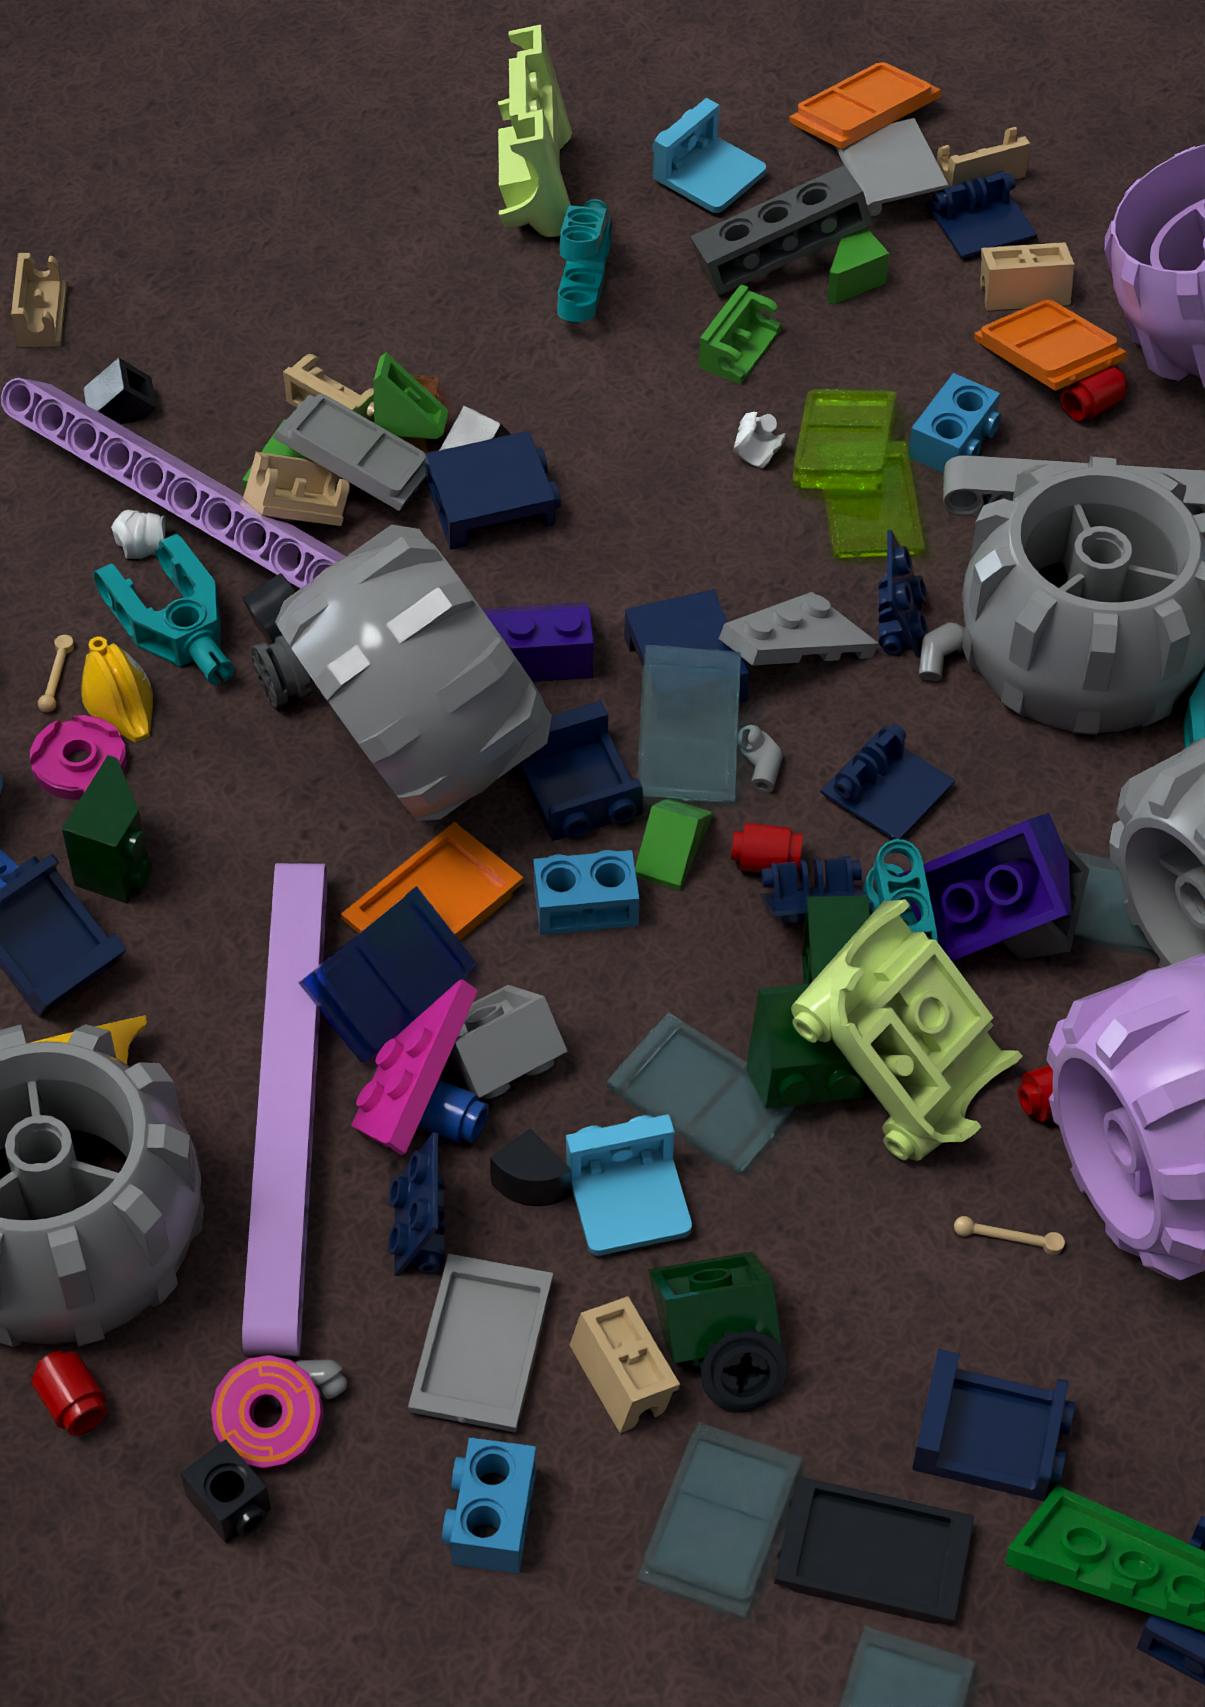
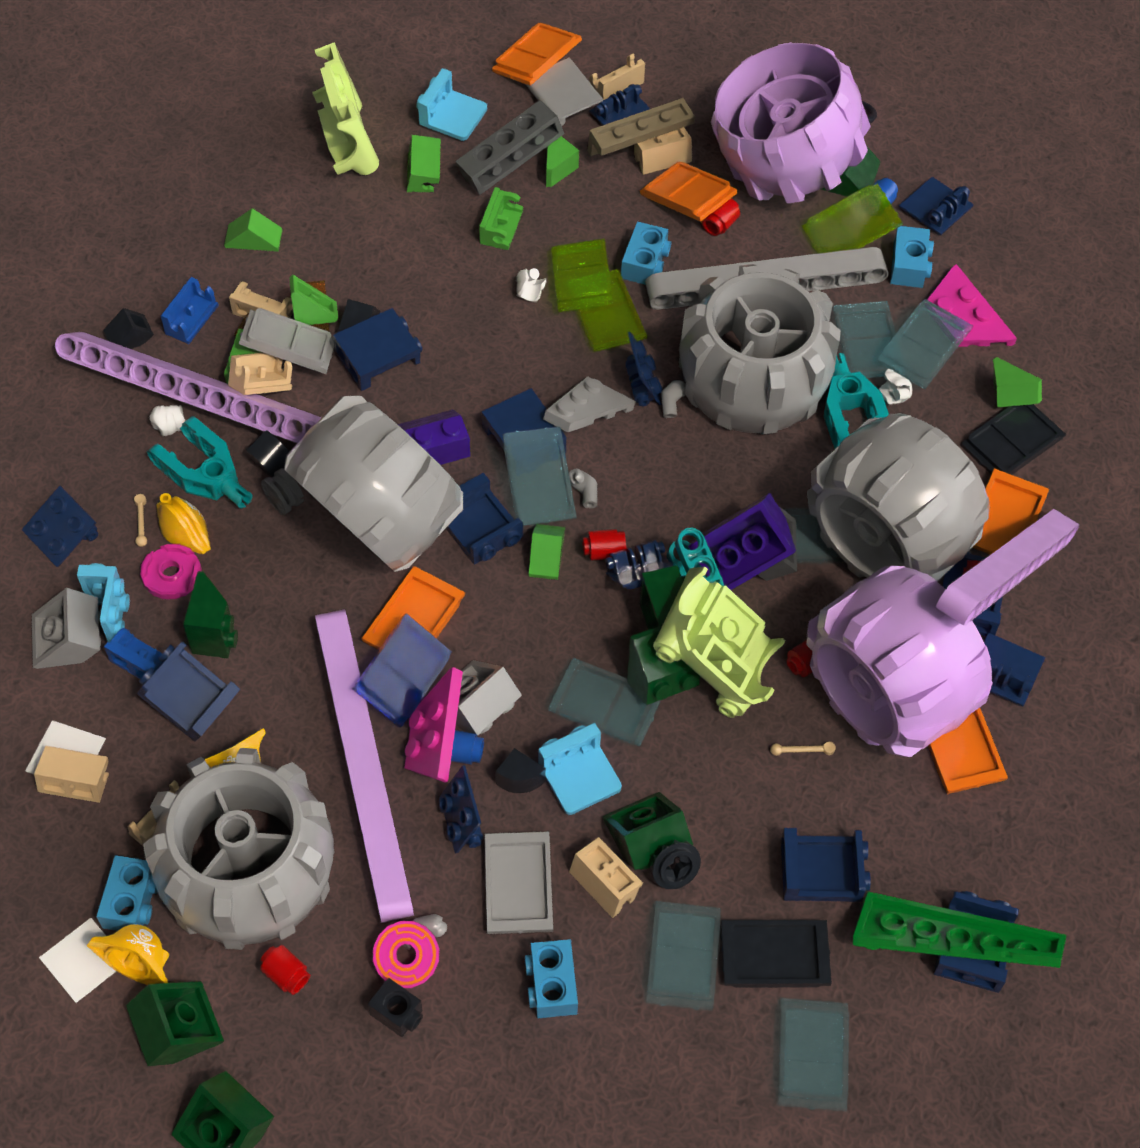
camera: 15 degrees left, 5 degrees up
(38, 303) = (58, 279): tan hinge -> none
(218, 383) = (189, 311): none -> blue hinge
(352, 289) = (253, 233): none -> bright green slope
(586, 247) = (393, 183): teal piece -> none
(586, 899) = (507, 599): dark azure brick -> none
(641, 233) = (423, 163): none -> bright green hinge
(888, 784) = (663, 488): dark blue hinge -> none
(996, 235) = (640, 127): none -> dark tan fence

